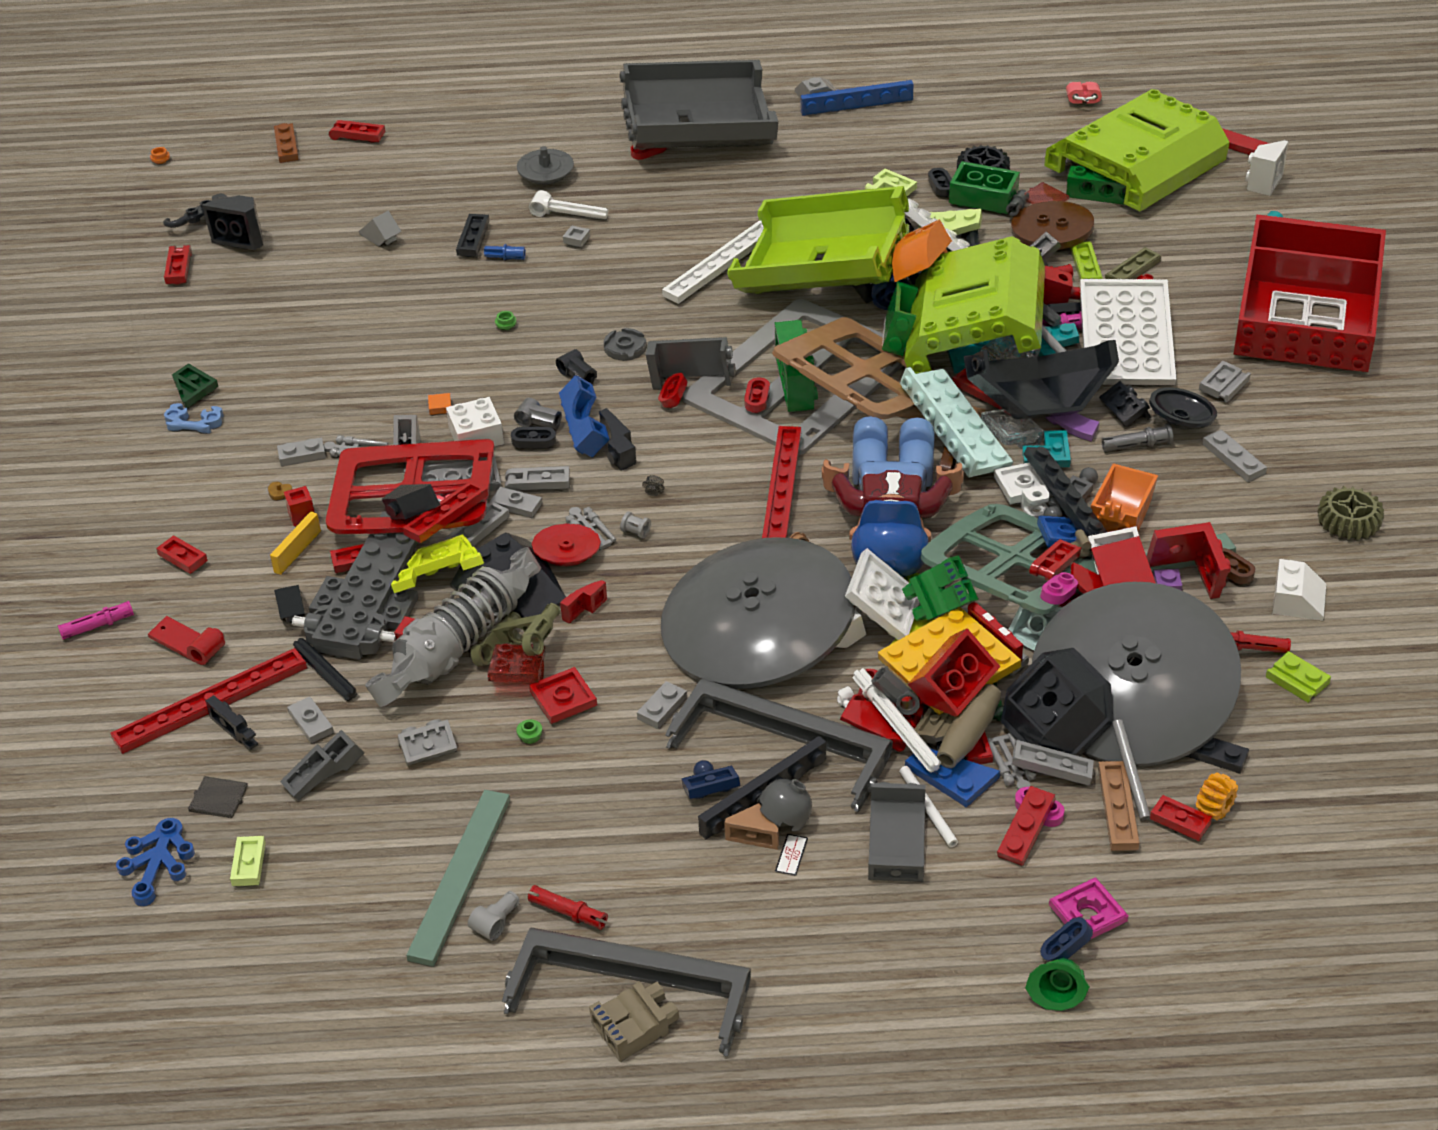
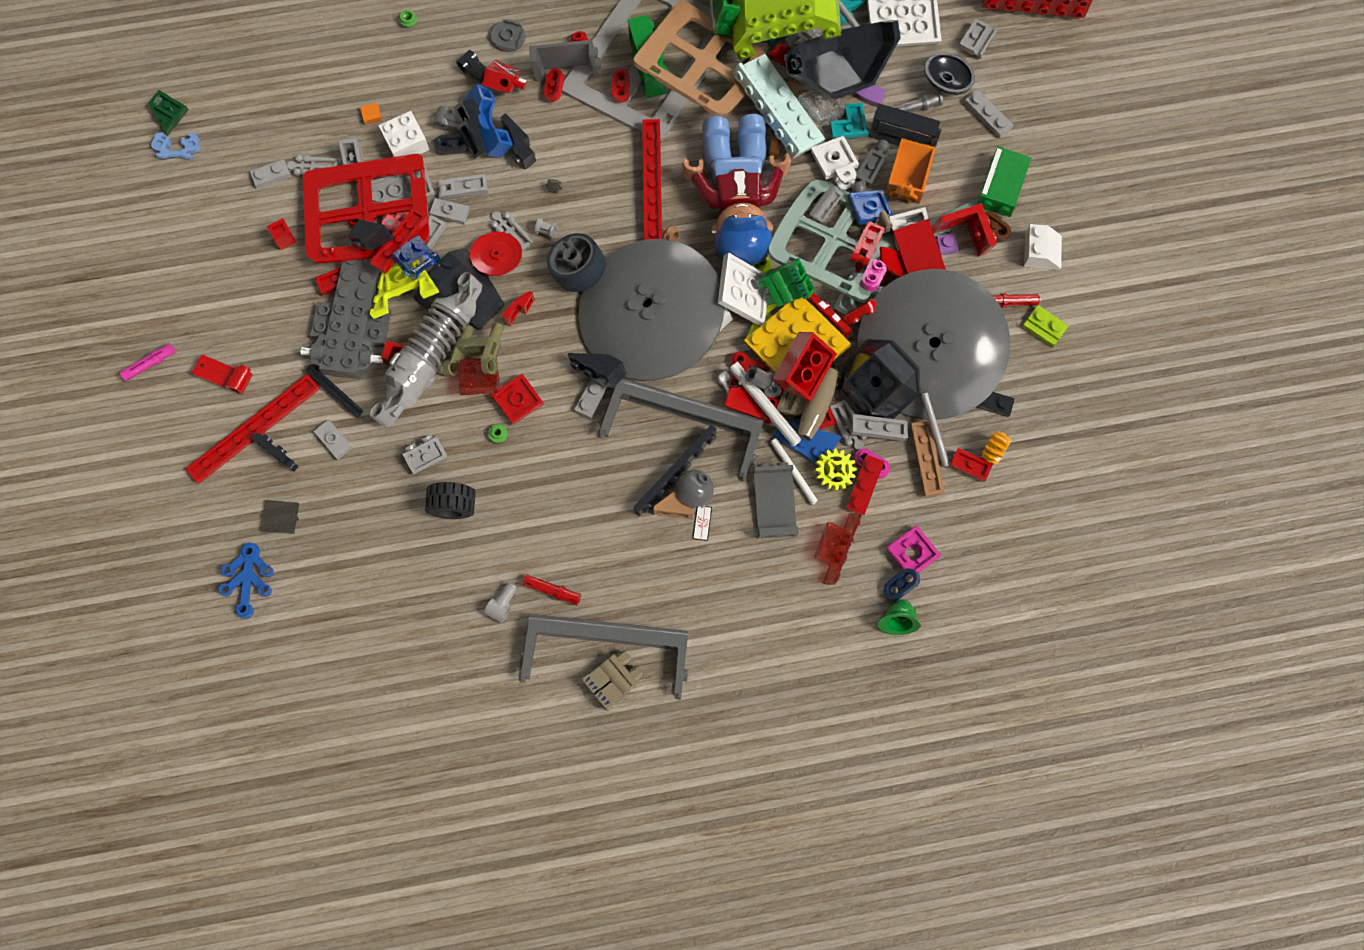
camera: 10 degrees left, 30 degrees up
(182, 554) = (199, 290): red plate -> none
(247, 861) = (314, 575): yellowish green plate -> none
(277, 489) = (261, 216): pearl gold piece -> none
(289, 602) = (294, 331): black slope -> none
(295, 543) = (286, 271): yellow tile -> none
(322, 763) = (351, 483): dark grey slope -> none
(449, 785) = (450, 500): none -> black tyre
(458, 878) = (469, 571): sand green tile -> none
(461, 521) = (412, 252): none -> clear blue plate
(558, 416) = (468, 113): none -> black slope
(610, 376) = (503, 77): none -> red torso
(667, 554) = (576, 262): none -> wheel
(679, 664) = (601, 367): none -> black slope
(709, 781) = (636, 467): dark blue plate -> none
(973, 890) = (835, 546): none -> clear red bracket
(986, 807) = (829, 465): none -> neon yellow gear
(1007, 521) = (826, 203): none -> light grey plate
(1044, 619) = (865, 308): none -> red plate
(1063, 491) = (868, 171): black plate -> none
(1118, 439) = (905, 120): none -> black window
(1125, 404) = (904, 70): black bracket -> none
(1248, 517) = (1004, 181): none -> green panel
(1350, 513) = (1070, 171): olive gear -> none

